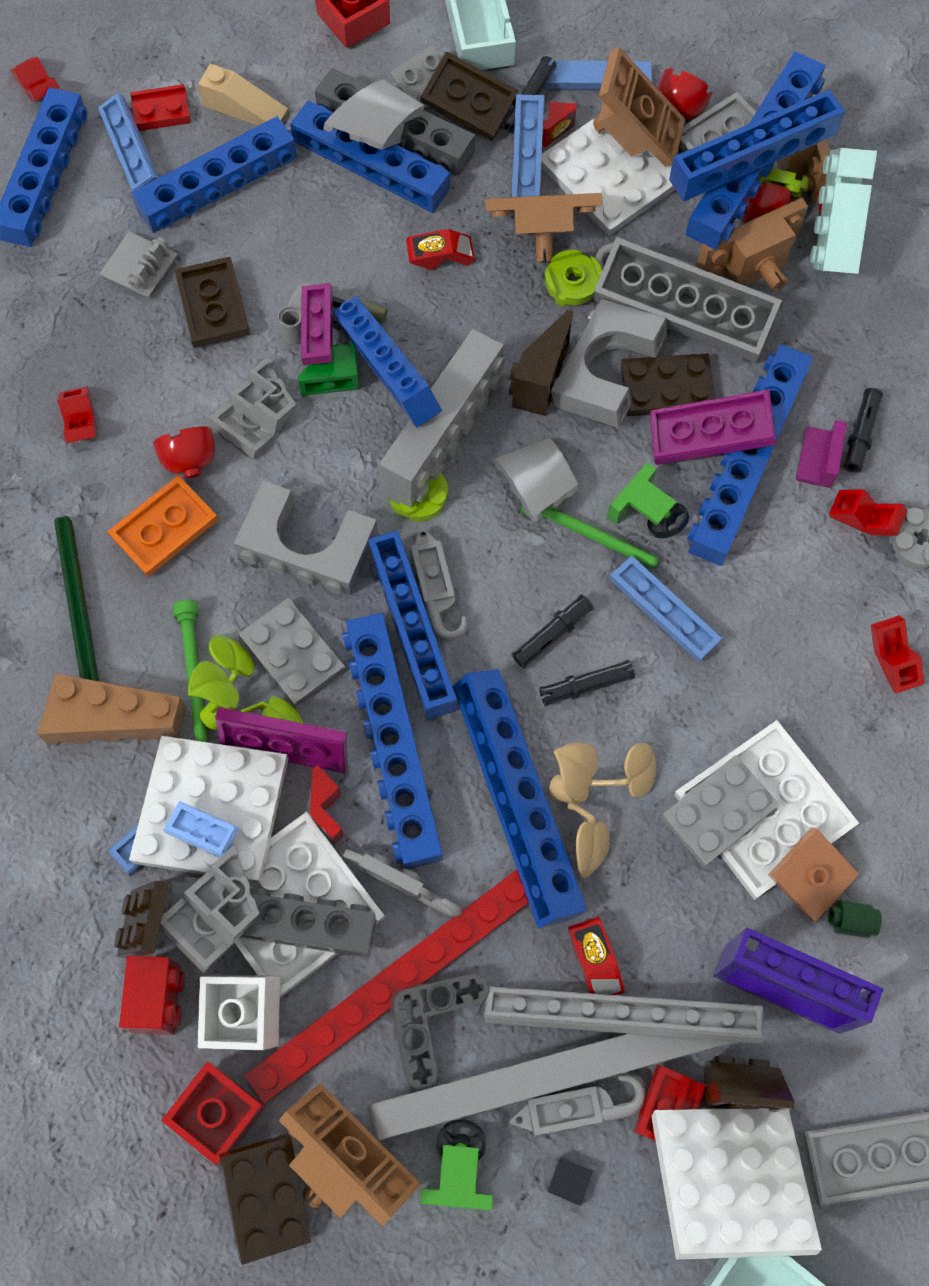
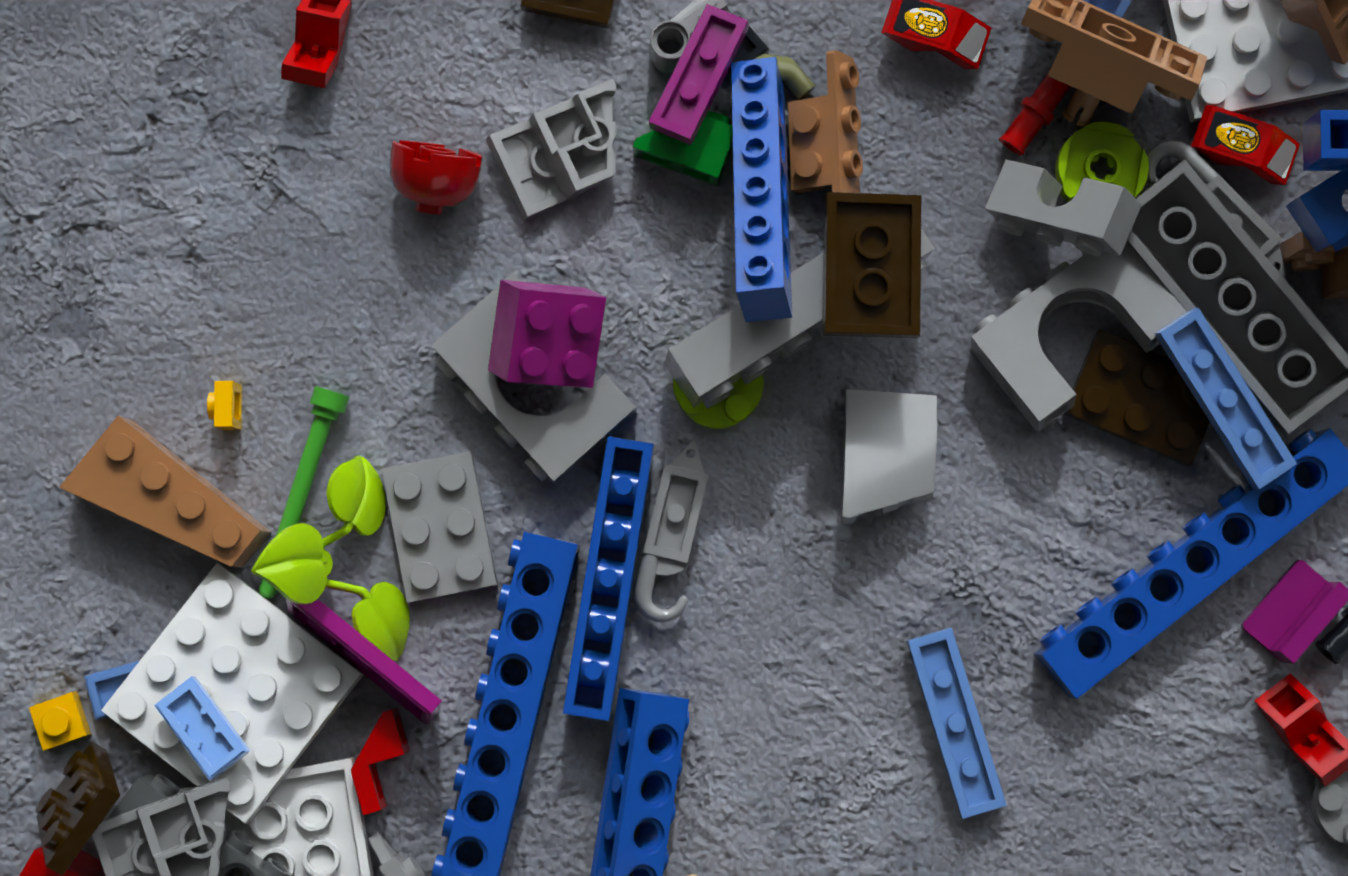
camera: 30 degrees right, 15 degrees up
(76, 599) = (196, 312): dark green axle -> none
(104, 888) = (60, 720): none -> yellow plate
(121, 643) = (225, 405): none -> yellow plate
(163, 526) = (355, 263): orange plate -> none
(300, 499) = (546, 334): none -> magenta brick
(409, 332) = (825, 133): none -> medium nougat bracket
(473, 364) = (872, 265): none -> dark brown plate
(520, 265) = (1034, 113): none -> red pin
(540, 366) = (964, 303): dark brown slope -> none
(552, 631) = (791, 676): black pin -> none
(573, 686) = (797, 770): black pin -> none
(583, 294) = (1093, 220): none -> light grey arch
(598, 536) = (930, 580): bright green piece -> none
(646, 225) = (1245, 141): none -> slope
(650, 502) = (1016, 570): bright green piece -> none
(712, 427) = (1164, 503): magenta tile -> none
(713, 351) = (1225, 398): none -> medium blue plate

